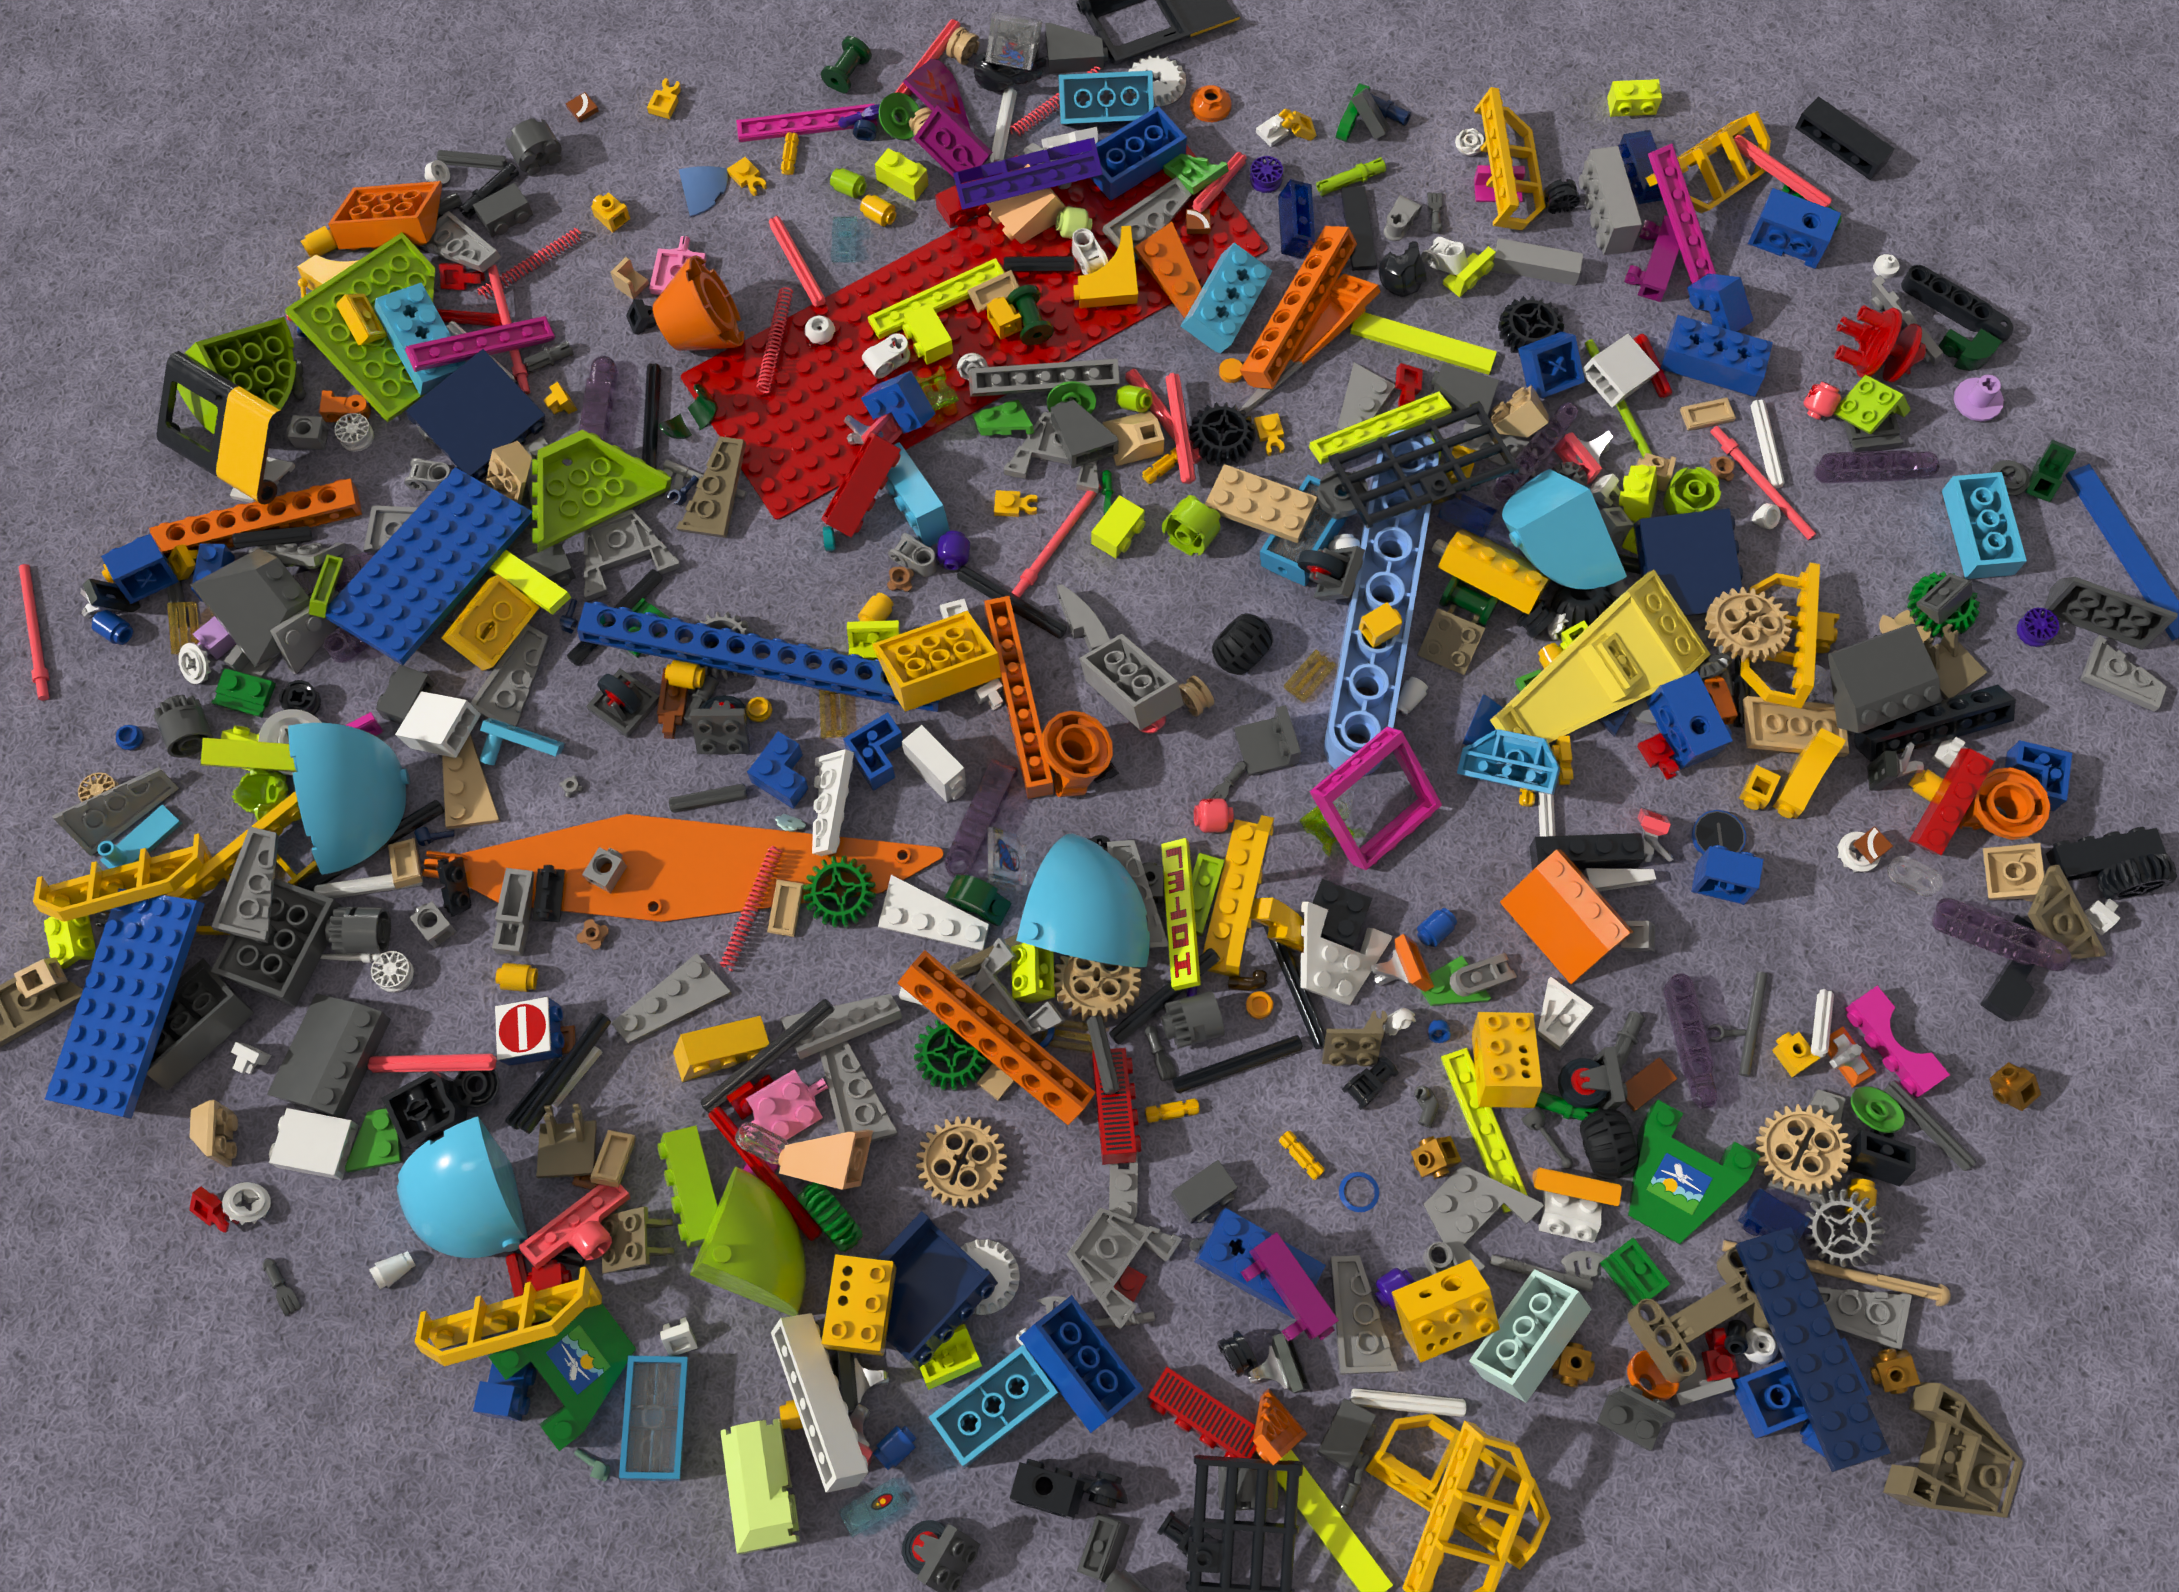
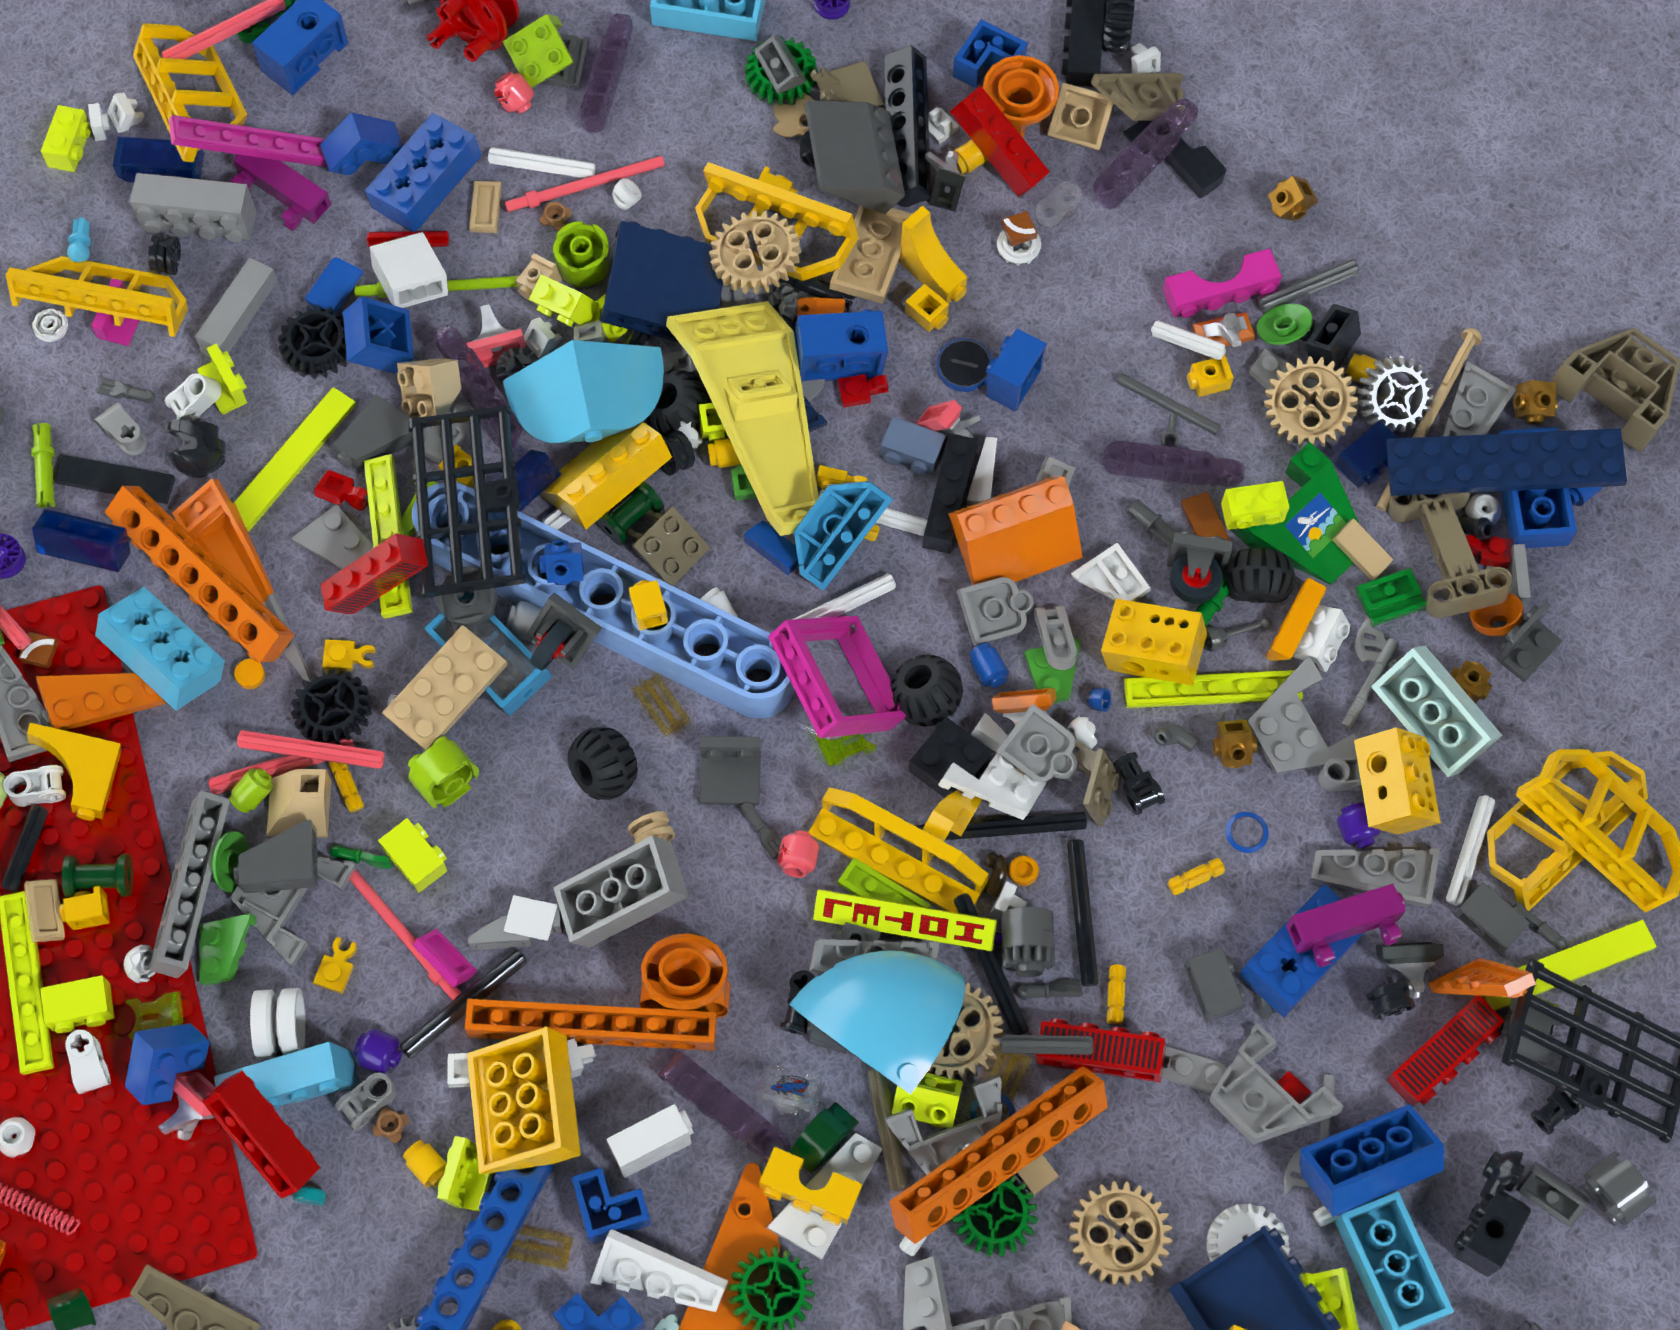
camera: 75 degrees left, 0 degrees up
(931, 872) = (833, 1201): none -> yellow arch
(953, 471) = (277, 1022): none -> white wheel
(1043, 576) = (445, 958): none -> dark pink tile
(1091, 624) = (530, 918): none -> white sticker
(1225, 994) = (1006, 901): none -> white tile
(1337, 420) = (374, 574): none -> red brick
(1369, 982) = (1040, 747): none -> light grey plate
(1393, 549) = (562, 562): none -> blue brick
(1394, 880) = (927, 689): none -> black wheel
(1455, 797) = (852, 599): none -> white axle
(1491, 919) = (995, 609): none -> light grey plate
(1551, 137) = (79, 241): none -> medium azure axle
(1586, 323) = (334, 285): none -> blue slope
(1620, 808) = (912, 446): none -> sand blue brick
(1659, 114) = (98, 121): none -> white plate
(1669, 1113) = (1255, 505): none -> neon yellow brick
(1672, 1235) = (1362, 549): none -> tan tile
(1676, 128) = (122, 112): none -> white tile

